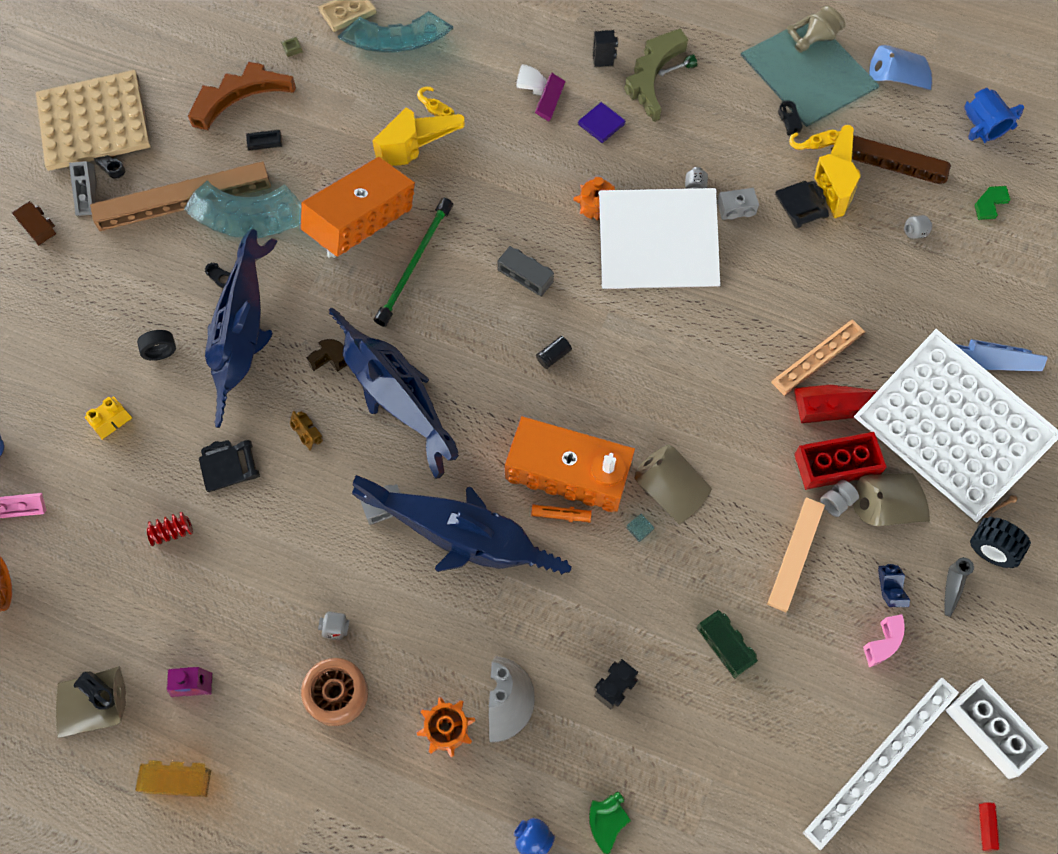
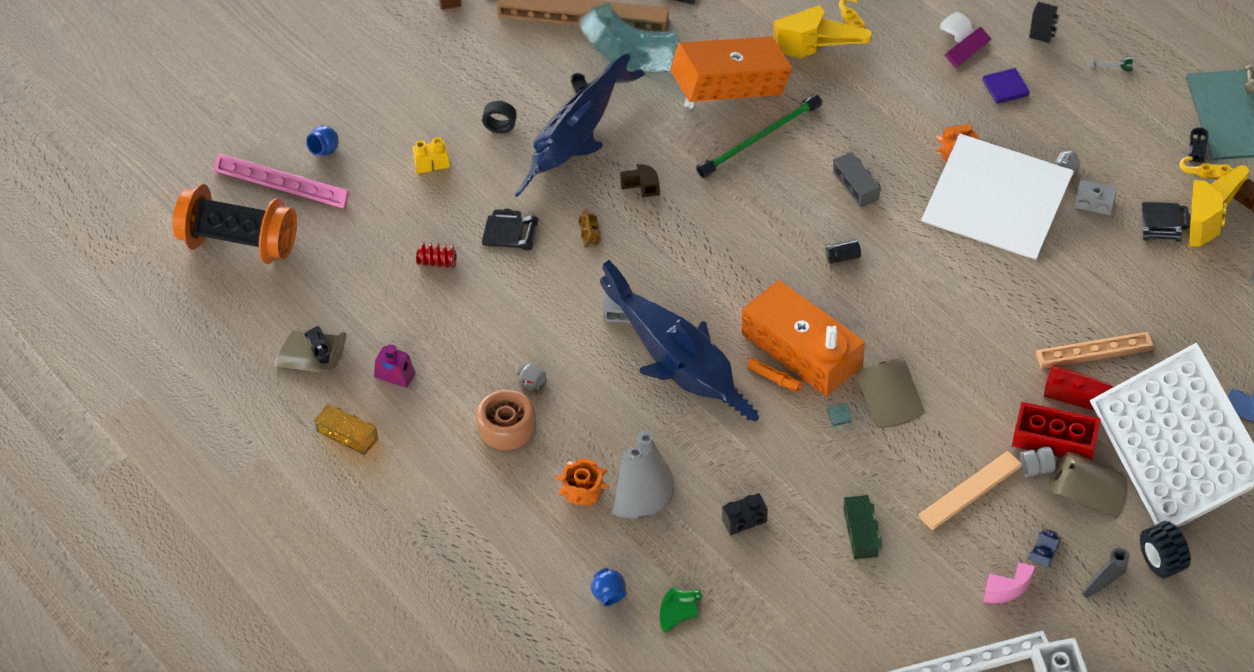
camera: 30 degrees right, 15 degrees down
(398, 388) = (684, 221): dark blue animal -> none
(657, 54) = (1098, 45): olive arch -> none
(1012, 498) = (1211, 532): medium nougat hinge -> none

